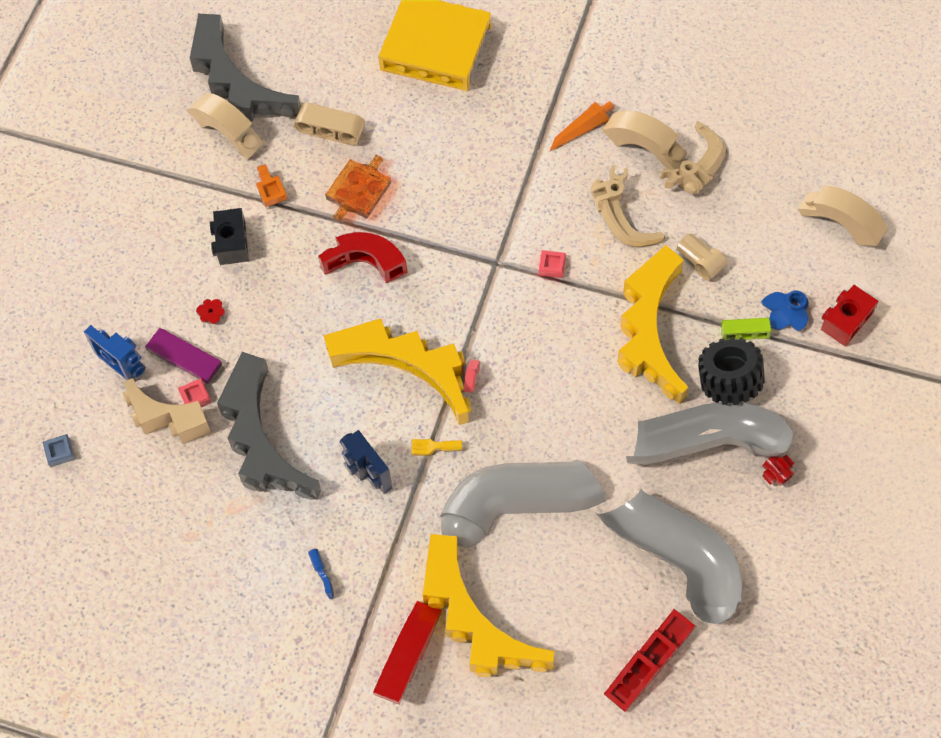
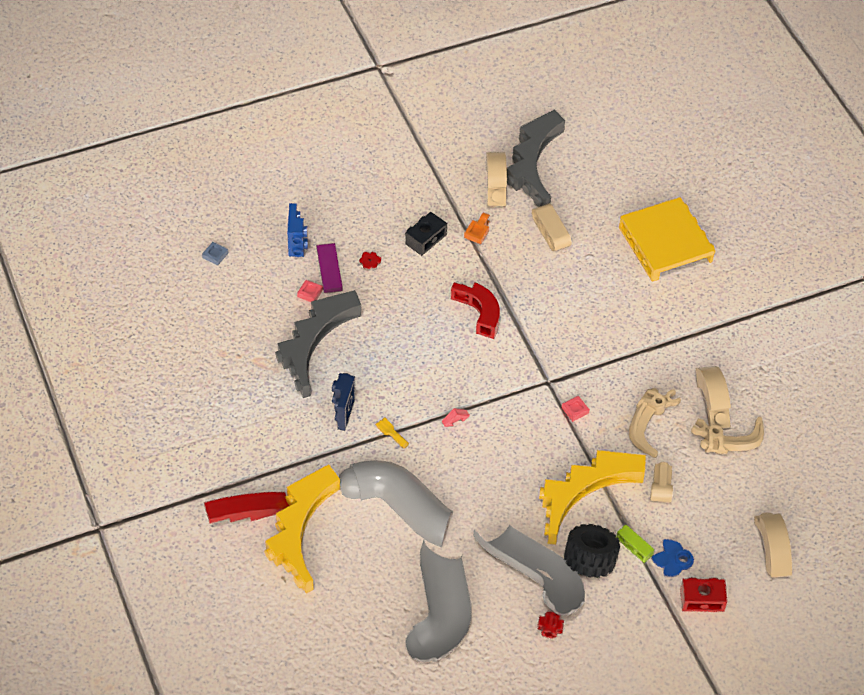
camera: 45 degrees right, 10 degrees down
(184, 420) = (286, 295): tan arch -> none
(318, 567) = (254, 437): blue piece -> none
(358, 188) = (523, 272): clear orange plate -> none
(375, 345) = (428, 355): yellow arch -> none
(588, 120) = (696, 358): orange bar -> none
(649, 660) = (357, 640): red slope -> none

